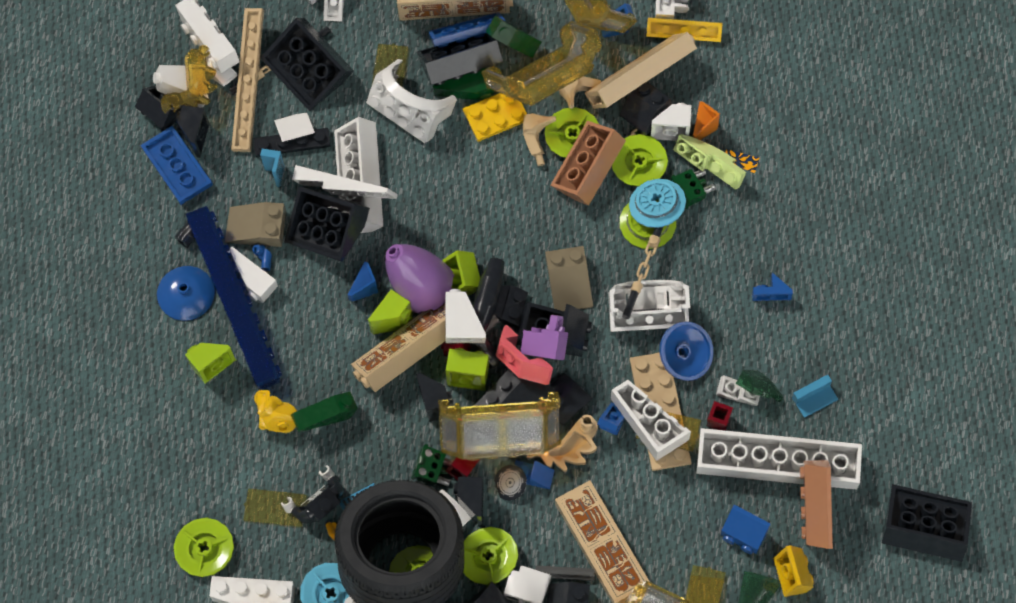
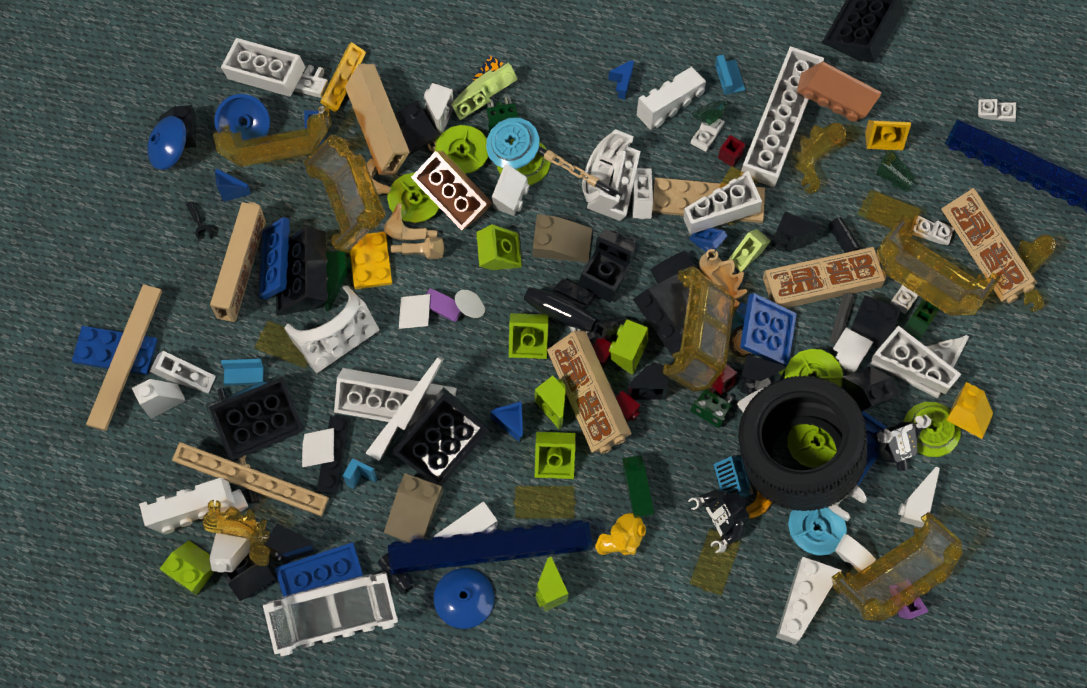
camera: 80 degrees left, 0 degrees up
(138, 177) = (330, 612): none -> clear windscreen
(154, 52) = (188, 567): none -> lime slope
(197, 534) = (757, 633): lime piece -> none
(264, 255) = (448, 510): blue arm -> none
(294, 338) = (544, 502): none -> clear yellow piece
(341, 332) = (554, 455): none -> lime slope
(349, 42) = (243, 371): none -> dark azure panel
(405, 385) = (628, 406): none -> dark red brick
(418, 276) = (530, 361): medium lavender cylinder -> none
(453, 168) = (414, 311): none -> white sticker
(461, 320) = (588, 330): white slope -> none
(465, 191) = (443, 305): none -> medium lavender slope
(474, 214) = (469, 303): none -> white sticker
(513, 37) = (299, 218): dark green slope -> none
(522, 161) = (432, 248): none -> tan animal
(523, 497) = (768, 330): none -> blue plate
(533, 370) = (637, 298): coral slope -> none
(541, 225) = (498, 248): none -> lime slope
(546, 342) = (632, 265): medium lavender hinge -> none
(603, 214) = (509, 191): none -> white slope
(614, 462) = (749, 249): none -> yellowish green slope
(638, 342) = (642, 194): none -> white slope
(639, 497) = (794, 233): none -> black slope
(658, 554) = (843, 235): none -> black axle
(695, 348) = (663, 159): blue dish -> none
(706, 121) = (443, 78): orange slope -> none
(744, 530) = (841, 159): blue slope -> none
(750, 499) = (812, 149): none -> clear yellow animal
(763, 342) = (669, 98): none -> white wedge

